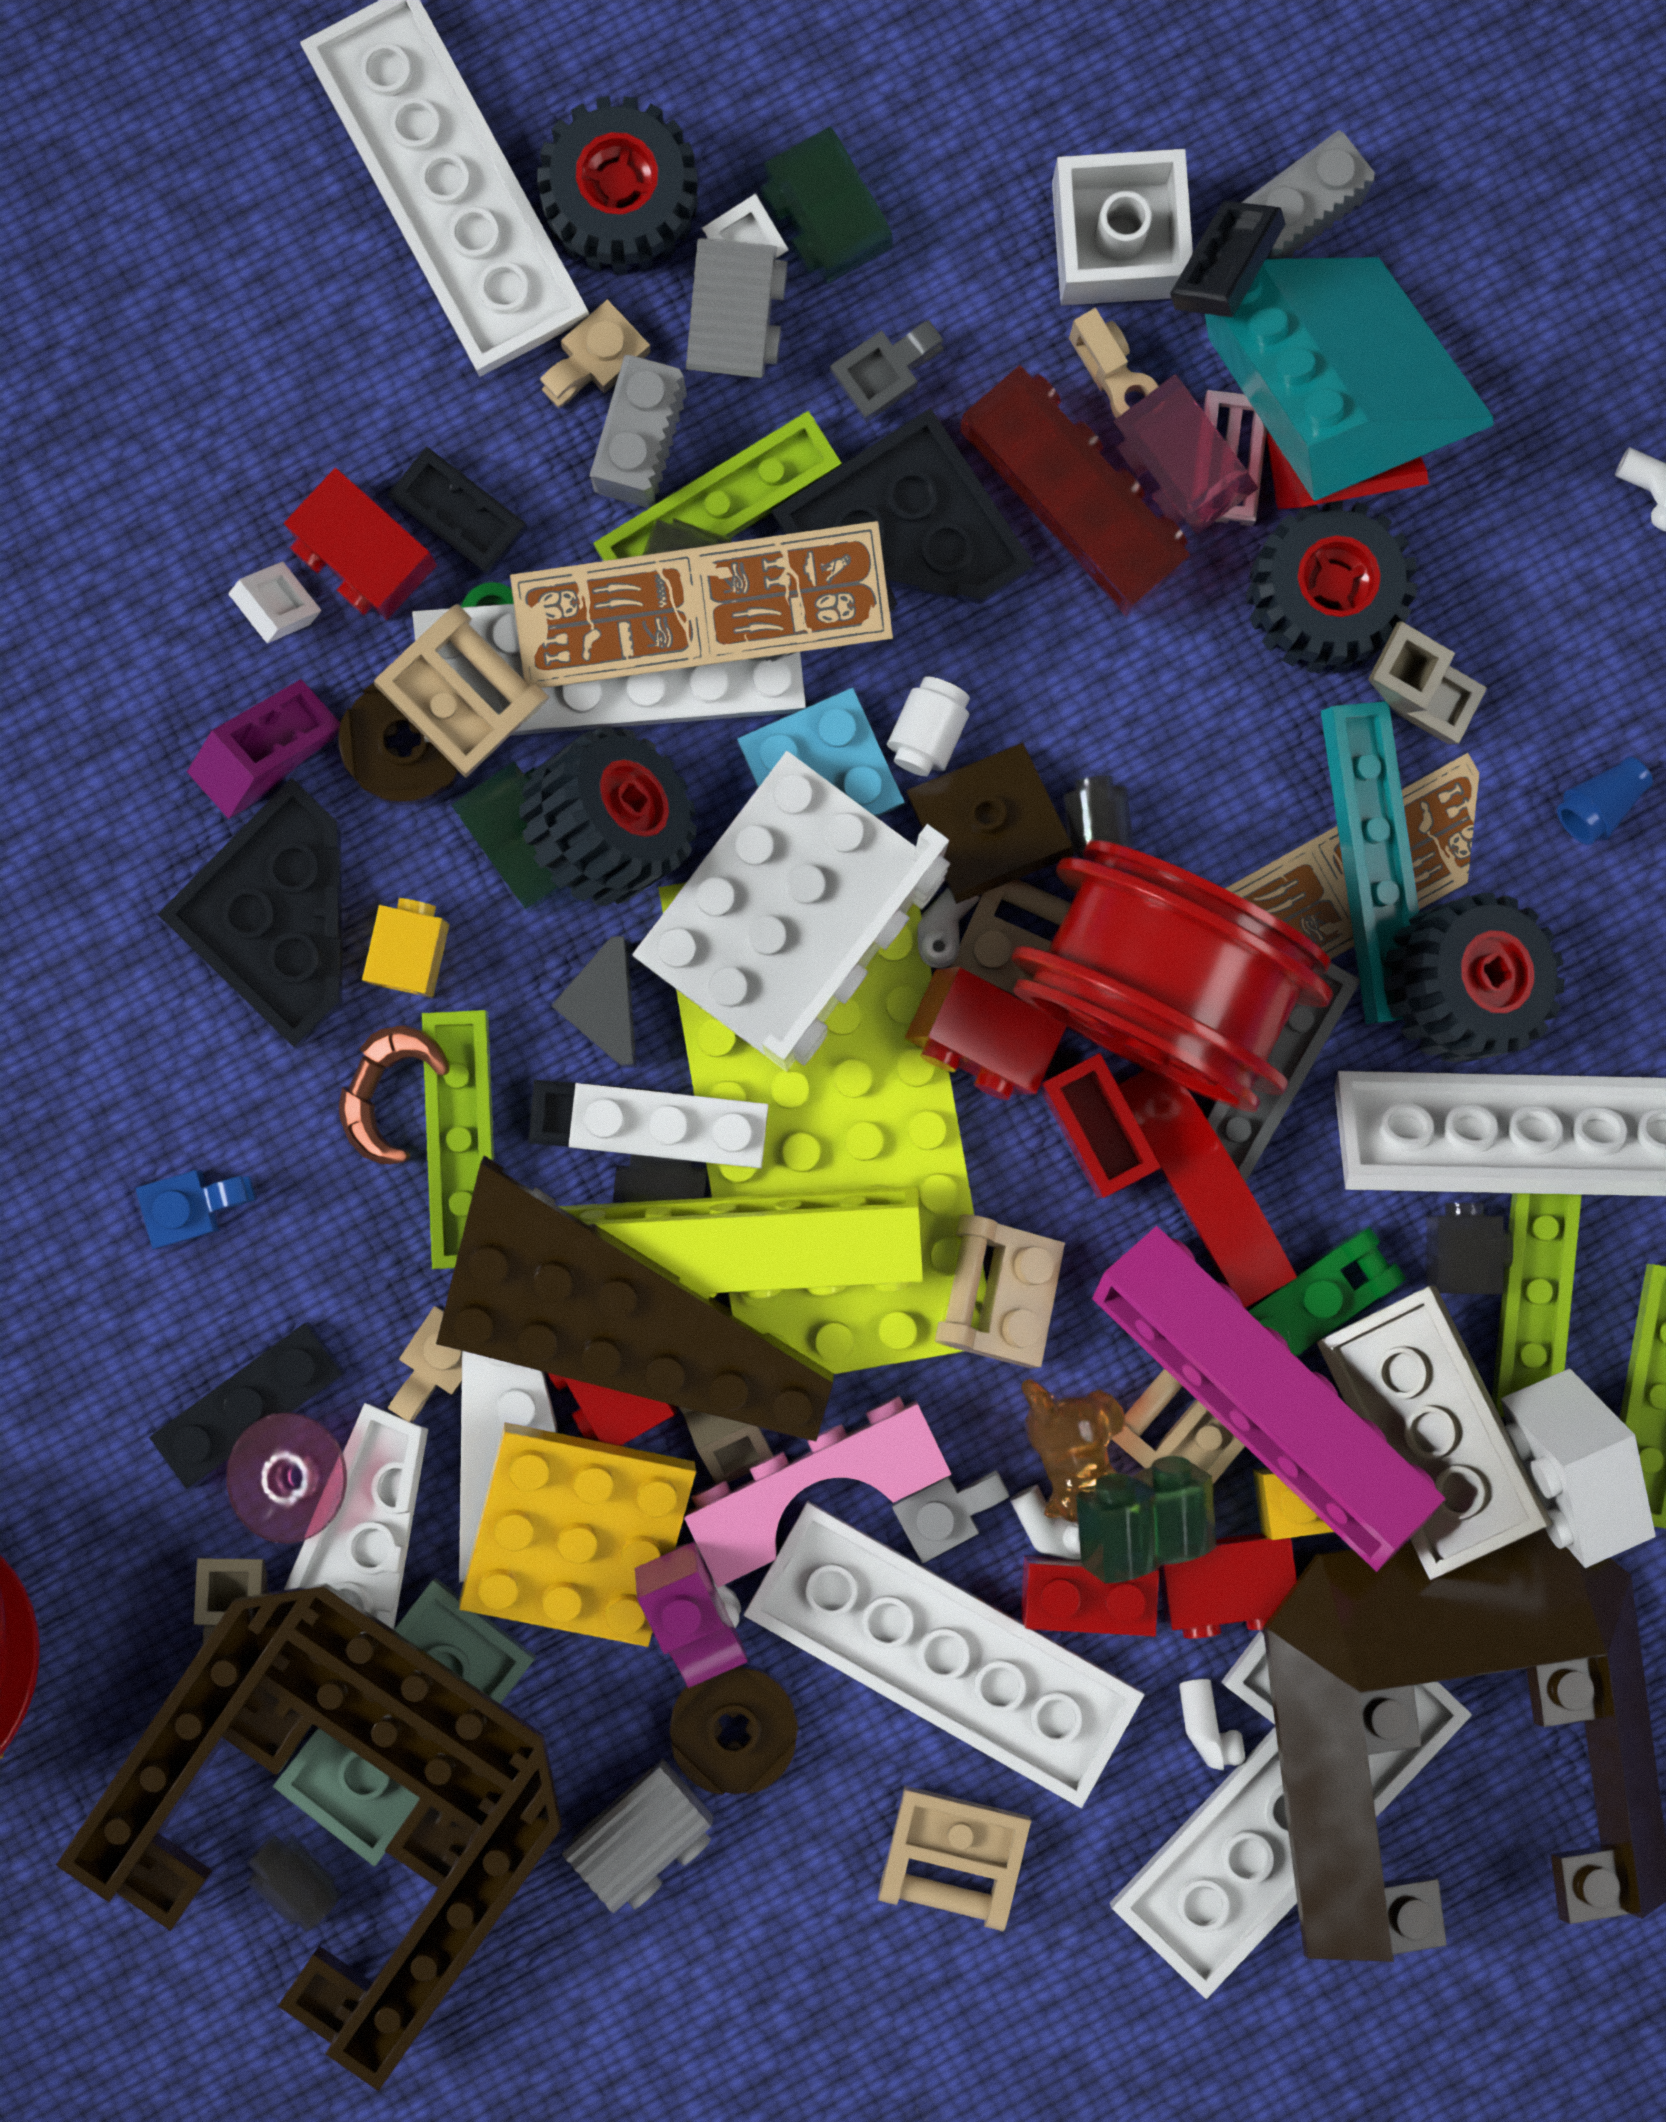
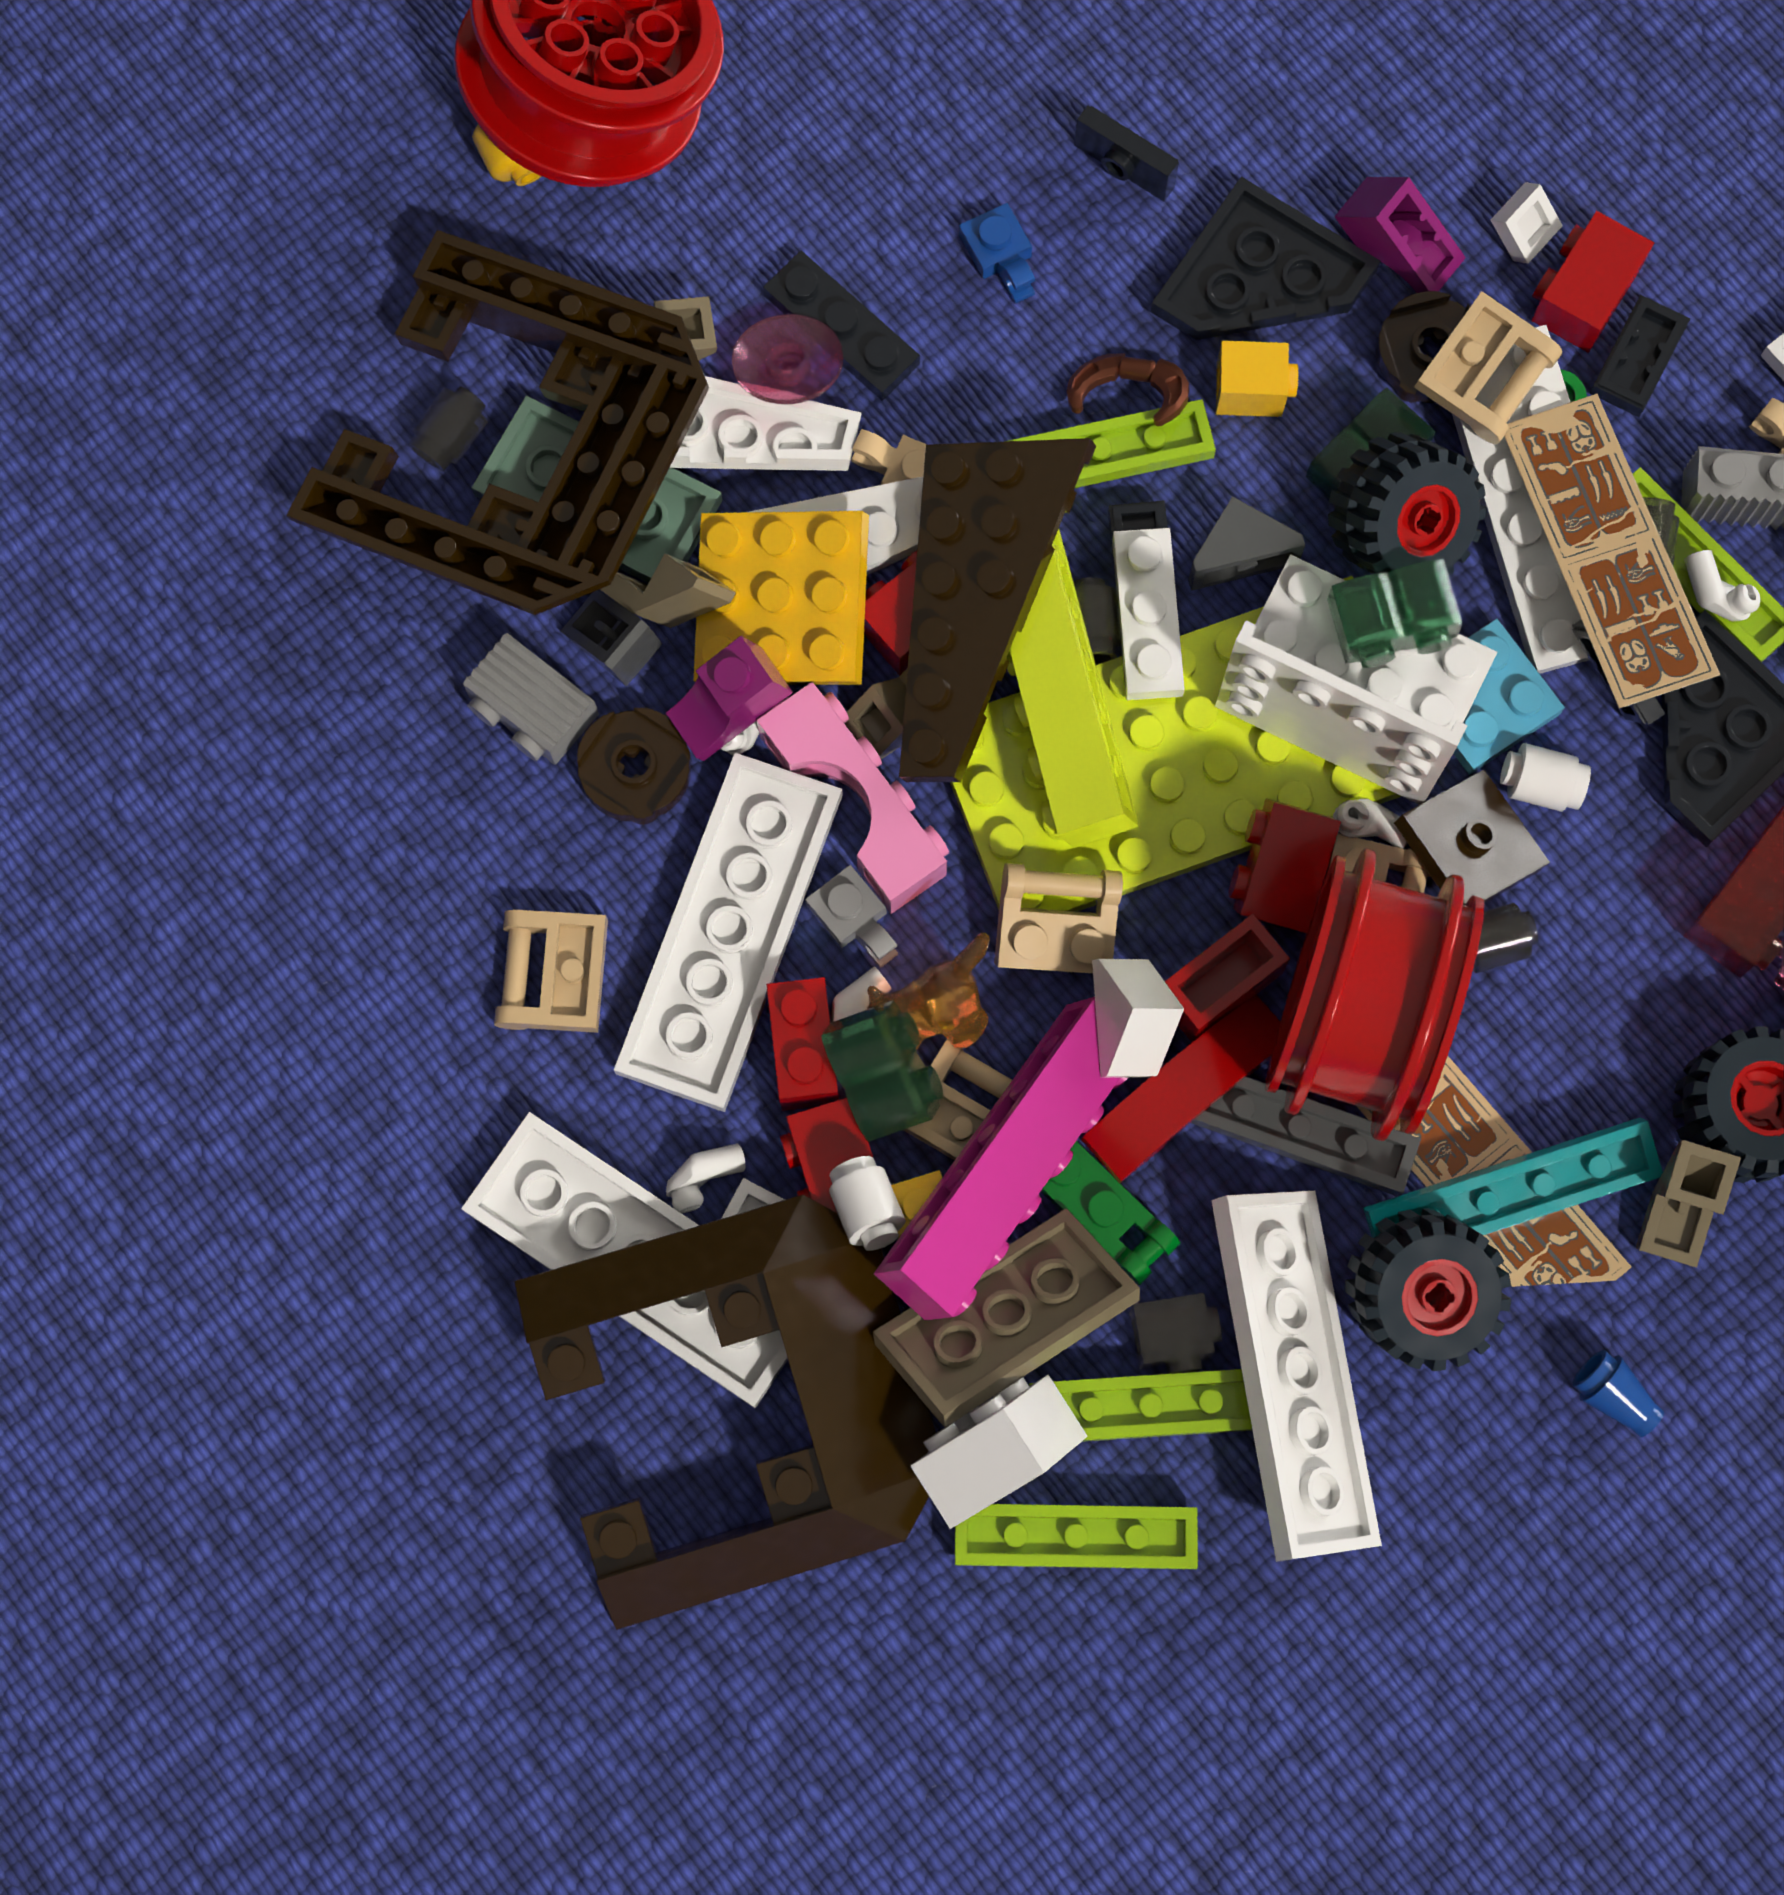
camera: 85 degrees right, 10 degrees down
(102, 1041) = (1126, 153): none -> black plate
(551, 1662) = (672, 595): none -> dark tan slope
(586, 1731) = (612, 636): none -> dark grey slope
(733, 857) = (1395, 613): none -> clear green brick
(762, 494) = (1716, 595): none -> white arm
(1132, 1235) = (1133, 1017): none -> white slope
(1293, 1564) = (866, 1203): none -> white brick

